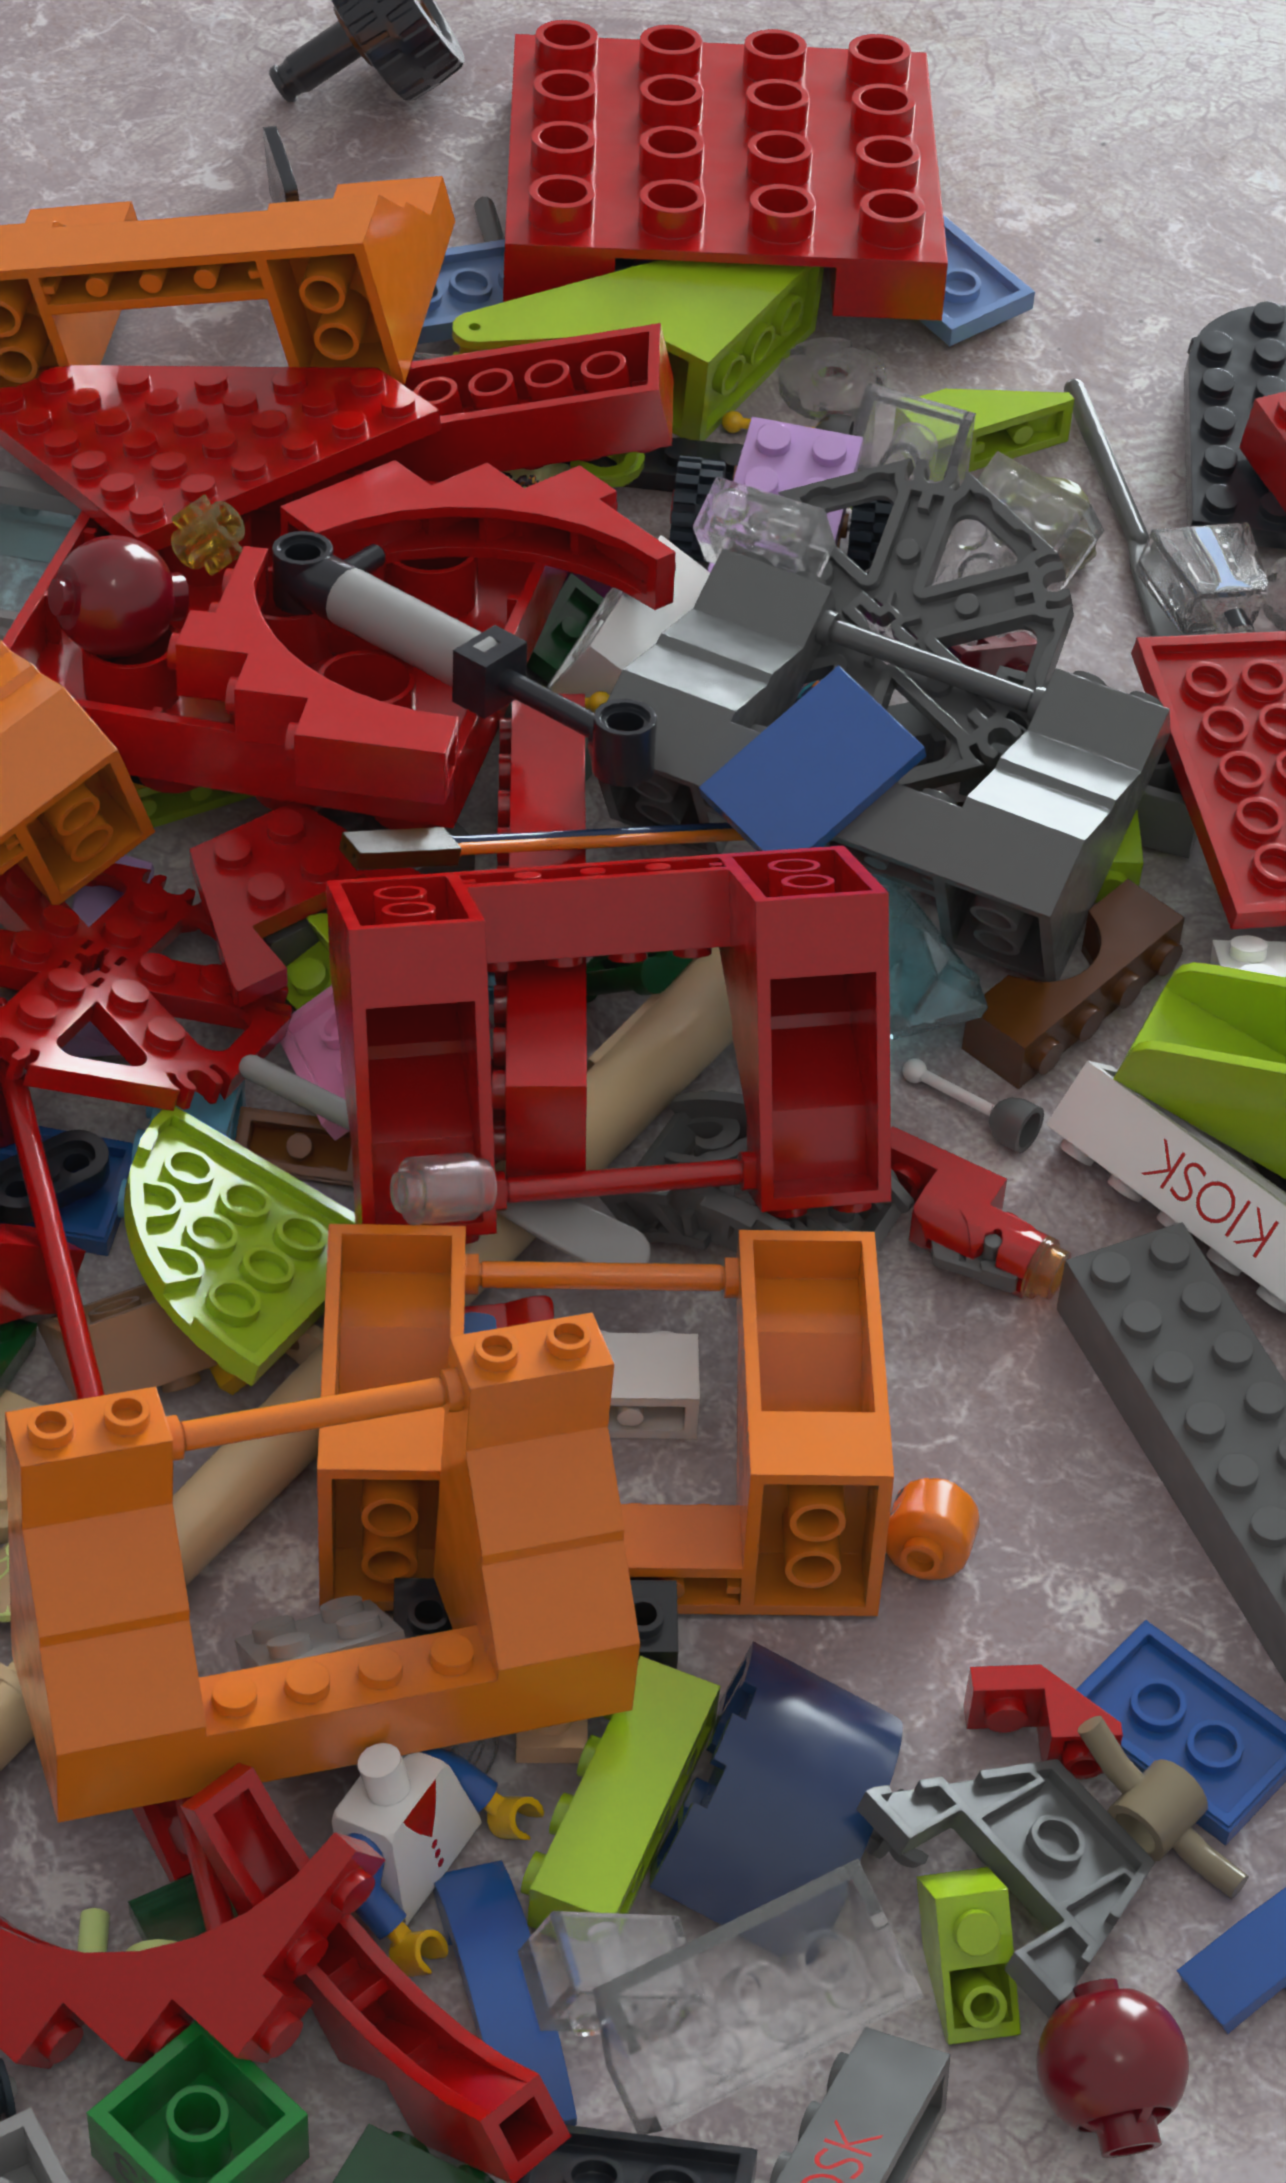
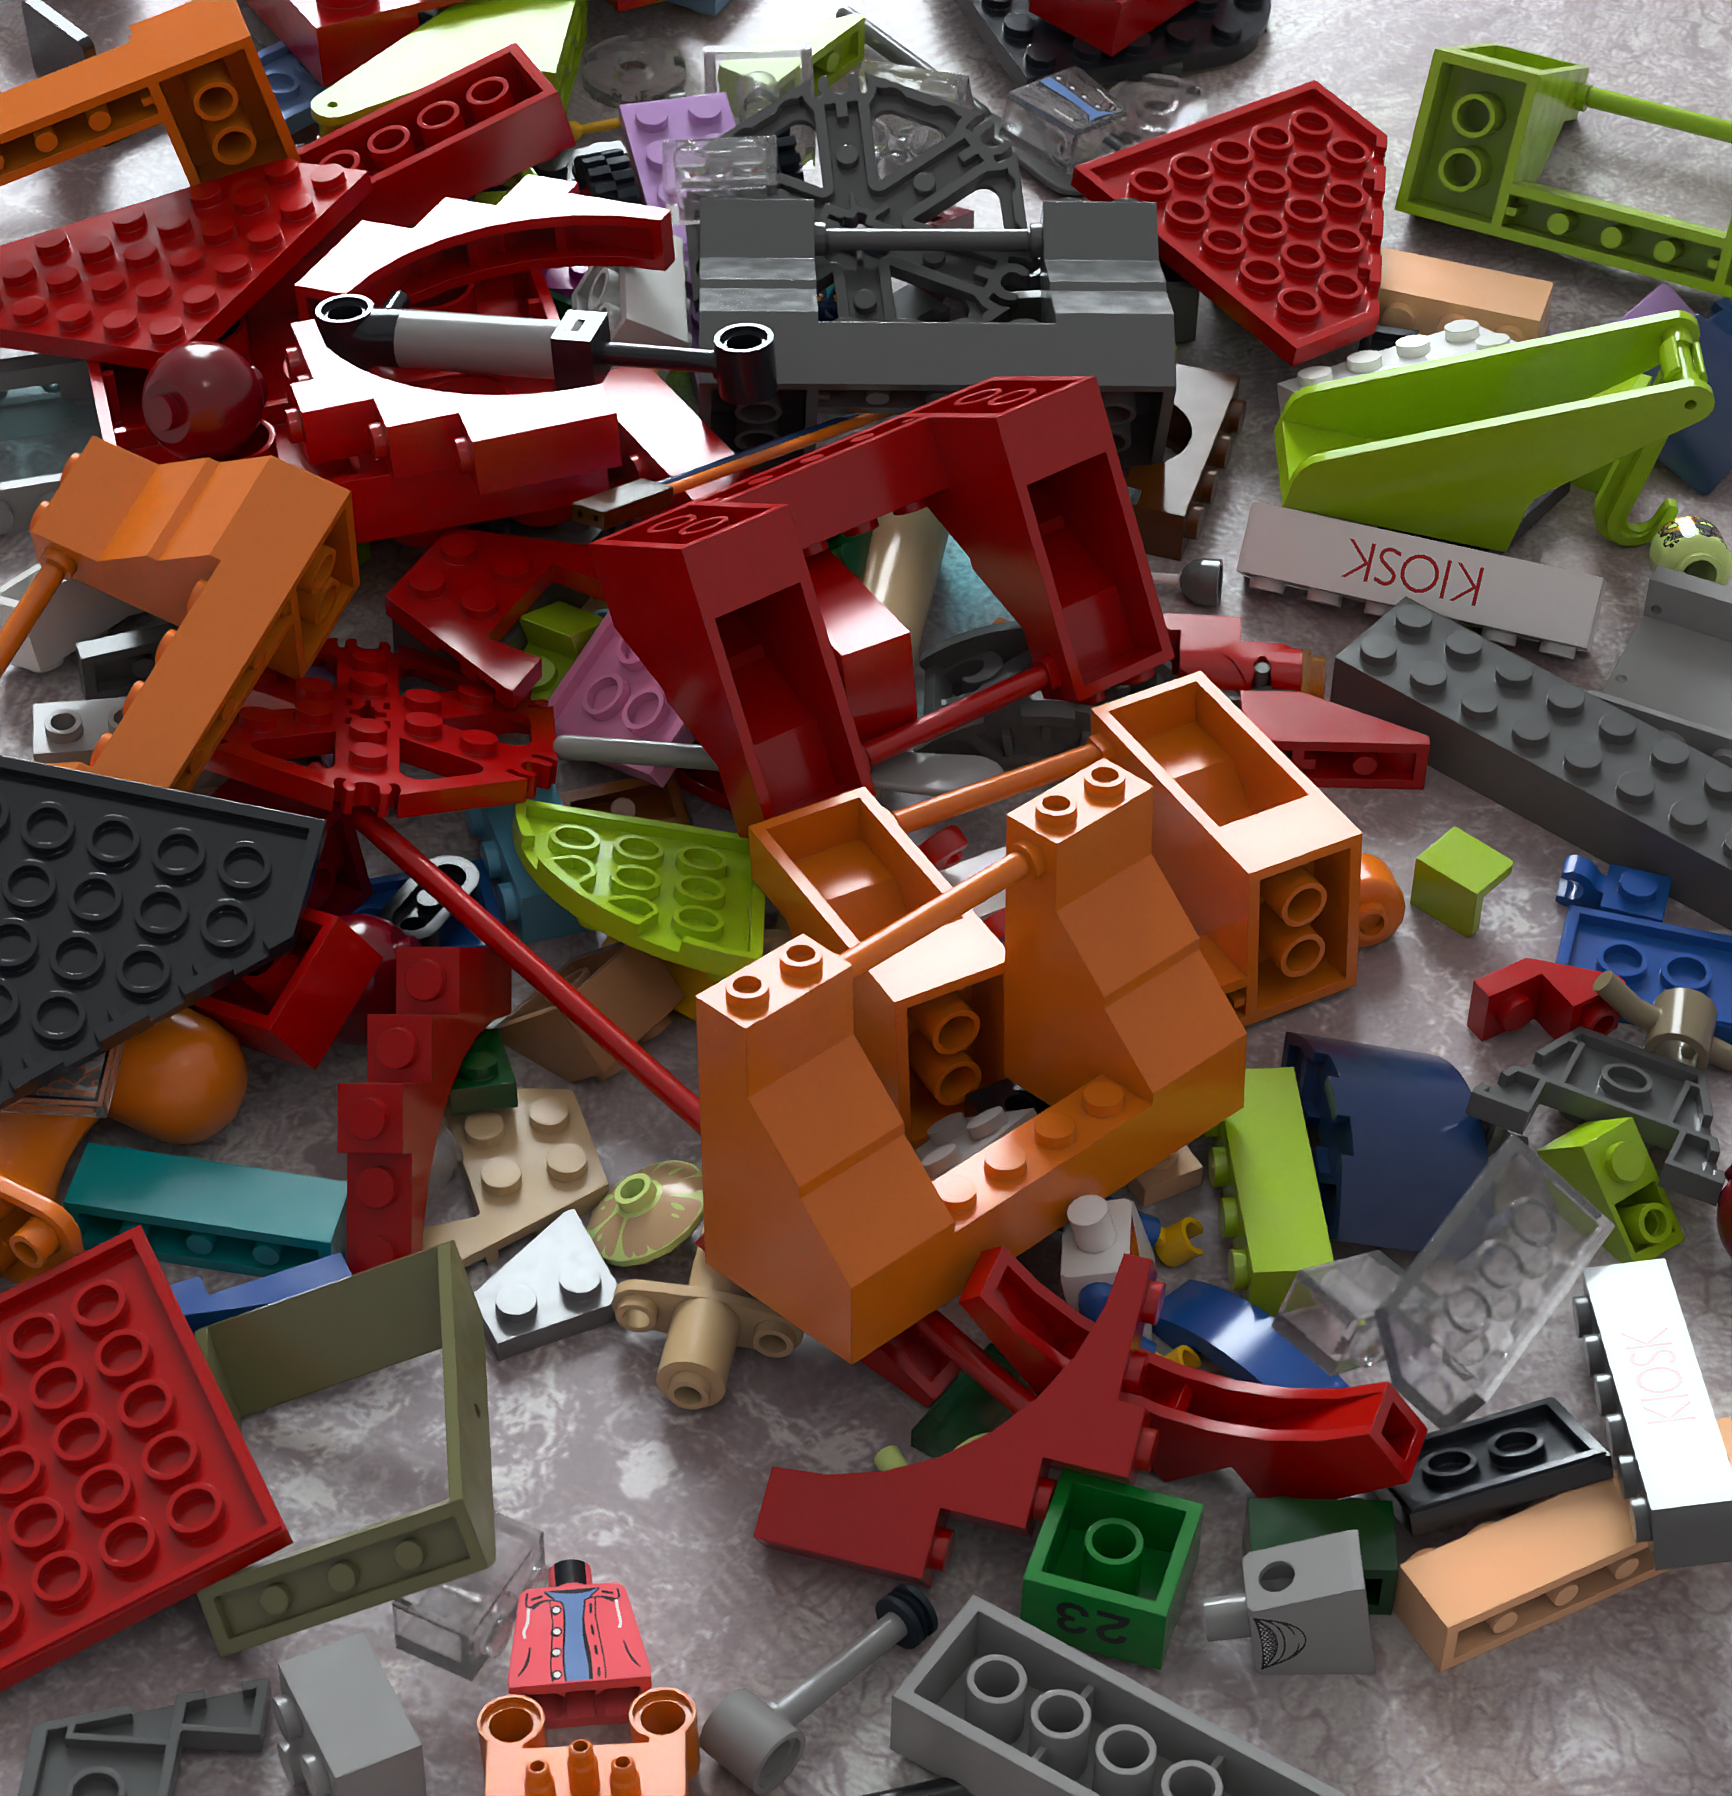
camera: 25 degrees left, 5 degrees down
(207, 535) = (241, 328): clear yellow gear -> none
(443, 1188) = (829, 762): clear brick -> none
(813, 768) = (914, 332): blue tile -> none
(1003, 1341) = (1338, 743): none -> red slope
(1044, 1542) = (1455, 877): none -> lime panel
(1210, 1631) = (1620, 892): none -> blue plate

